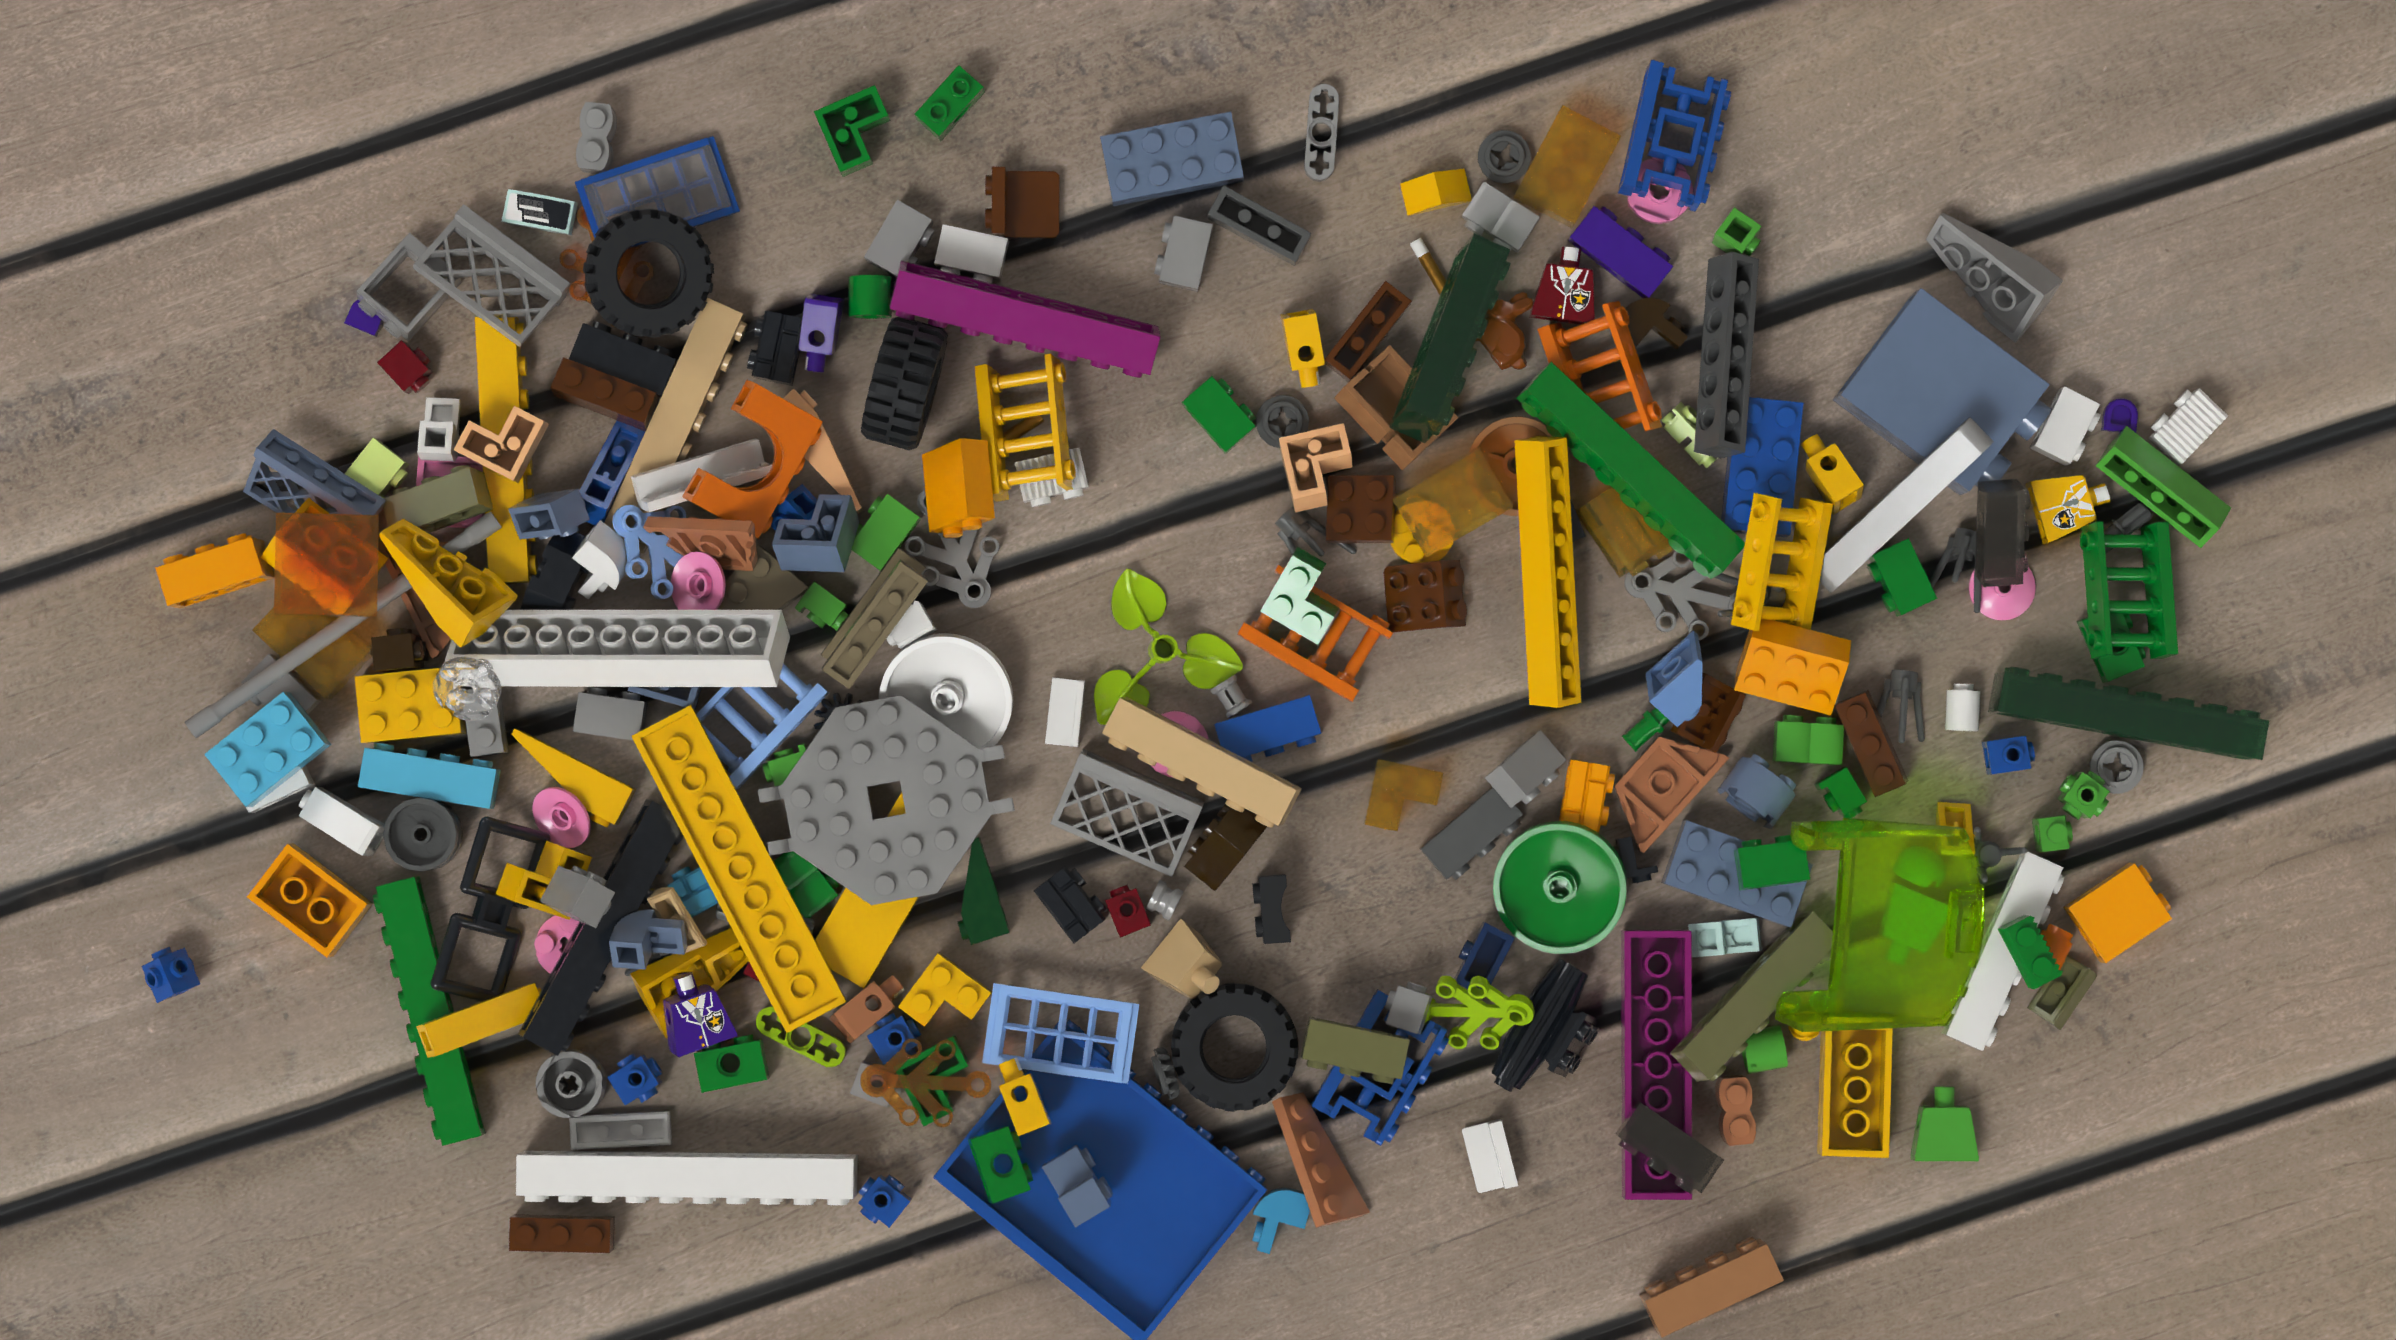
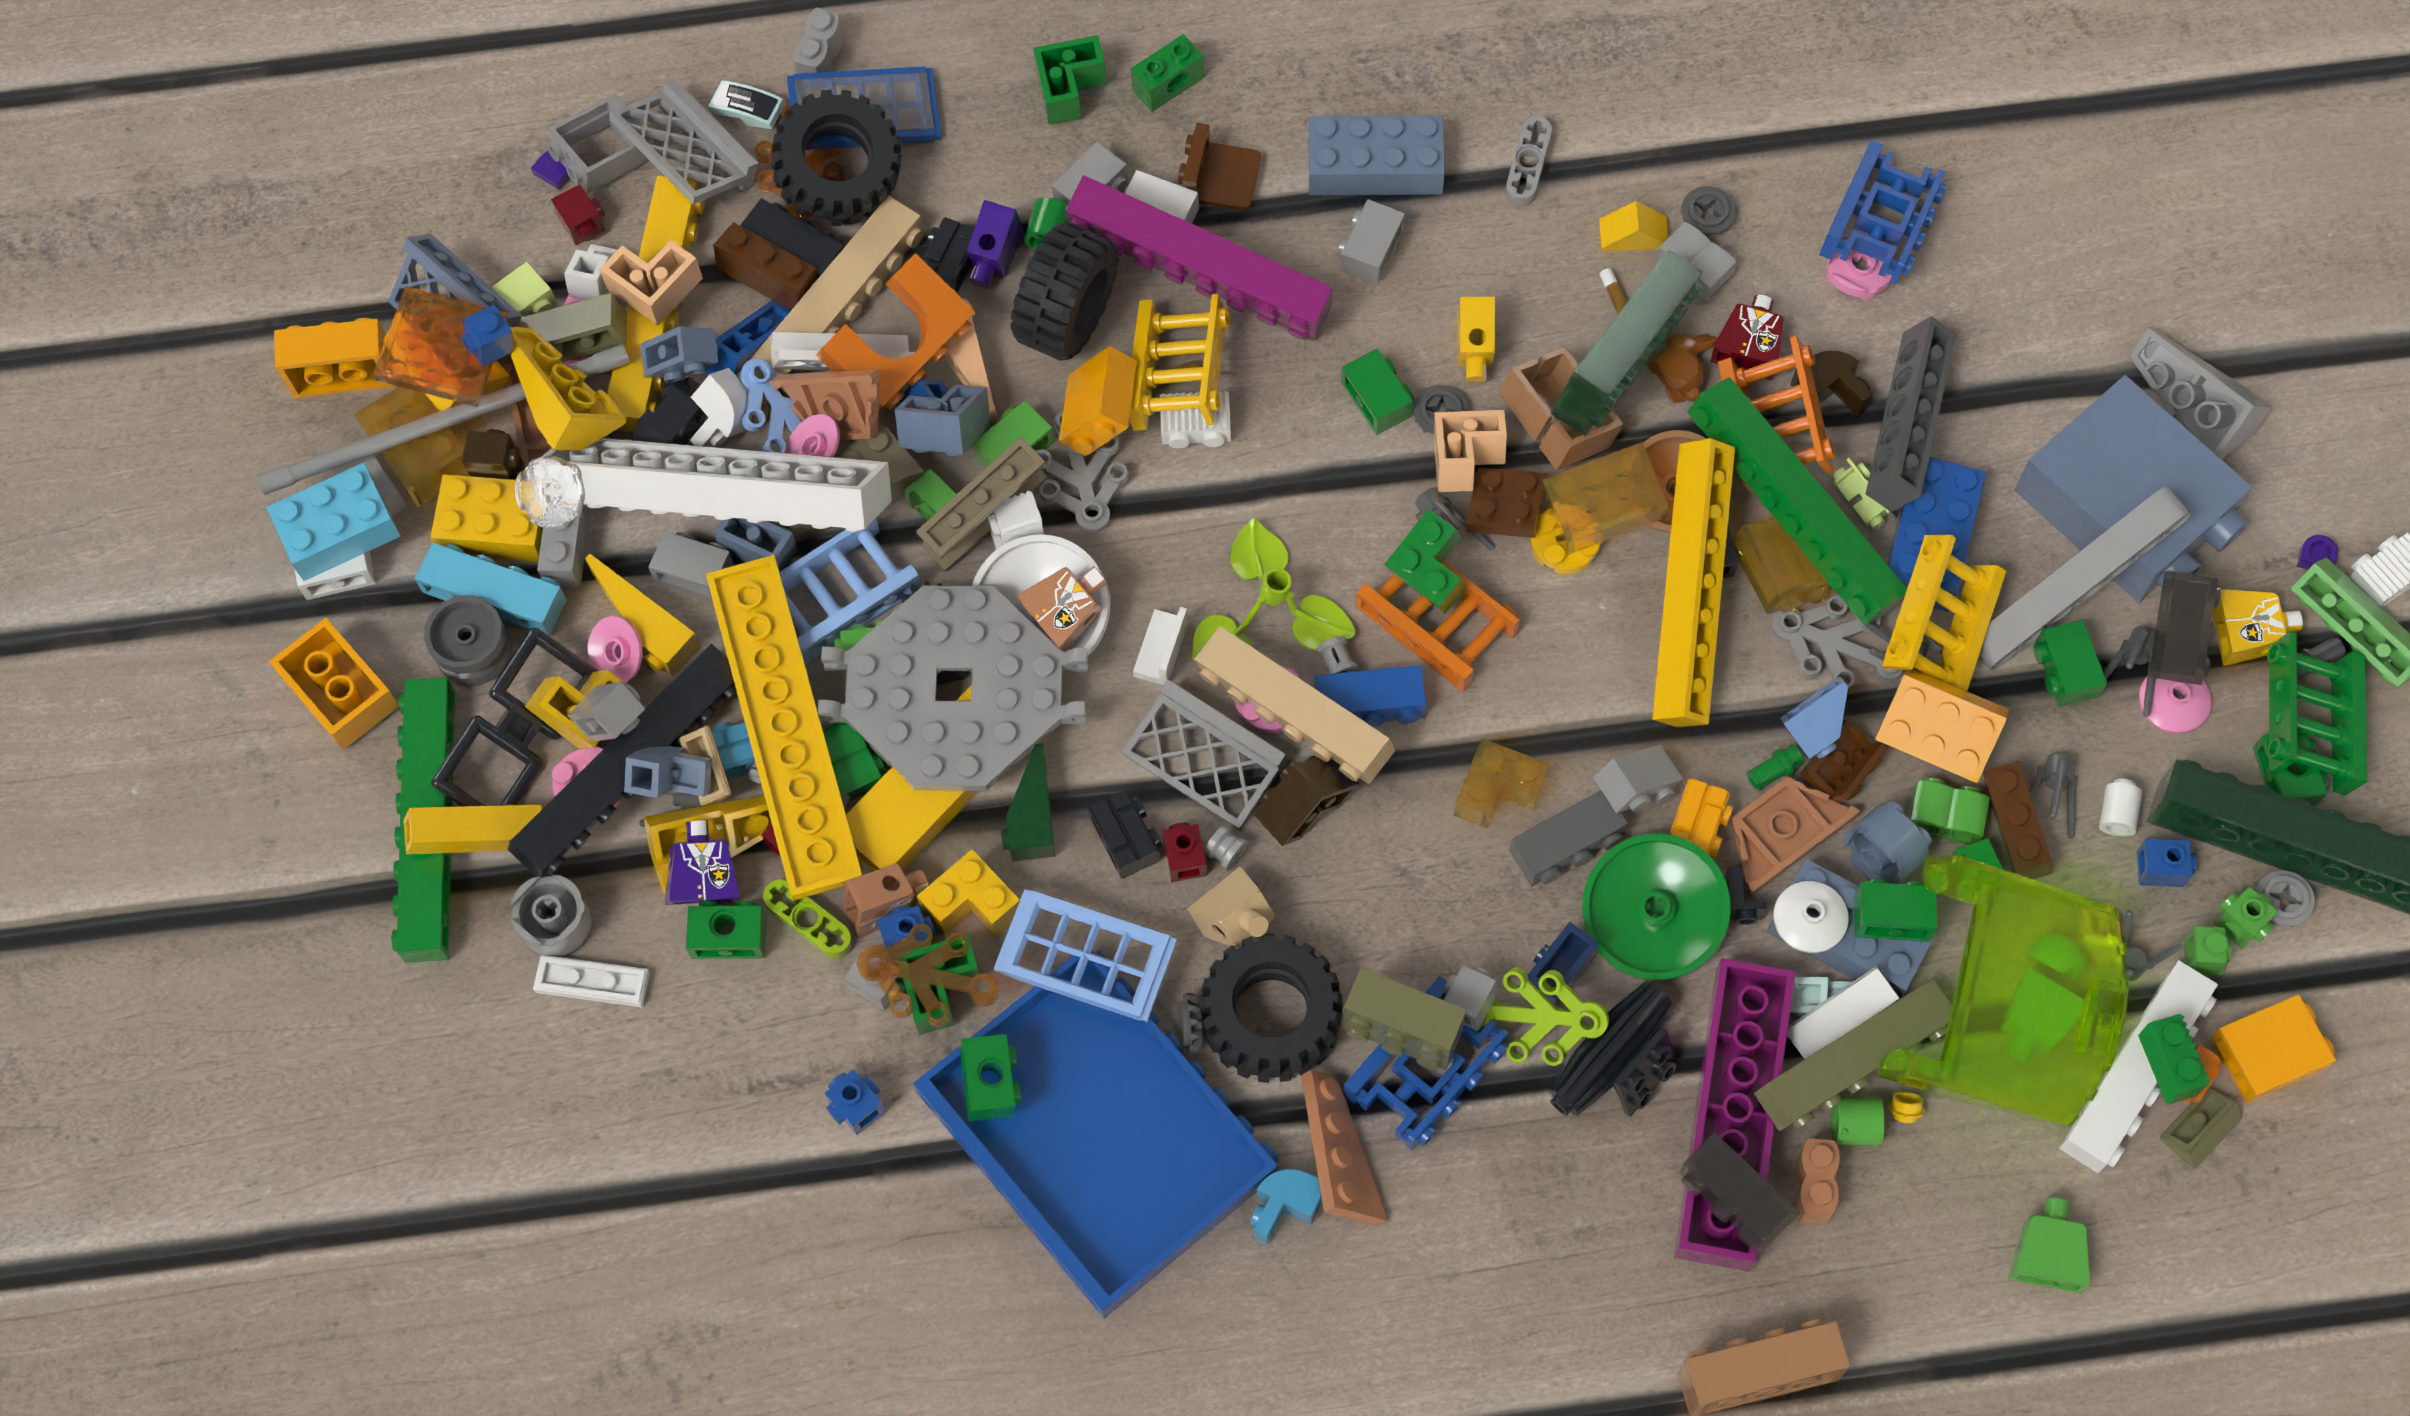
camera: 15 degrees right, 20 degrees down
(170, 973) = (169, 731): blue brick -> none
(342, 821) = (391, 615): white slope -> none
(370, 554) = (487, 335): none -> blue brick
(561, 1233) = (498, 1072): reddish brown brick -> none
(625, 1084) = (620, 924): blue brick -> none
(686, 1174) = (648, 1031): white brick -> none
(971, 704) = (1064, 604): none -> nougat torso
(1030, 1113) = (1029, 1012): yellow torso -> none
(1077, 1184) = (1069, 1116): sand blue brick -> none
(1259, 225) = (1451, 225): dark grey brick -> none
(1271, 922) = (1340, 858): black brick -> none
(1367, 331) = (1549, 329): reddish brown brick -> none
(1425, 596) = (1560, 595): reddish brown bracket -> none
(1489, 1156) = (1532, 1184): white panel -> none
(1567, 166) = (1772, 224): clear yellow brick -> none
(1621, 252) = (1813, 310): dark purple brick -> none
(1680, 876) = (1803, 931): none -> white dish
(1737, 955) = (1842, 1012): none -> white tile
(1738, 234) = (1939, 303): bright green brick -> none
(1835, 486) = (2012, 547): yellow torso -> none
(1855, 1093) = (1956, 1181): yellow brick -> none
(2066, 426) = (2259, 549): white brick -> none

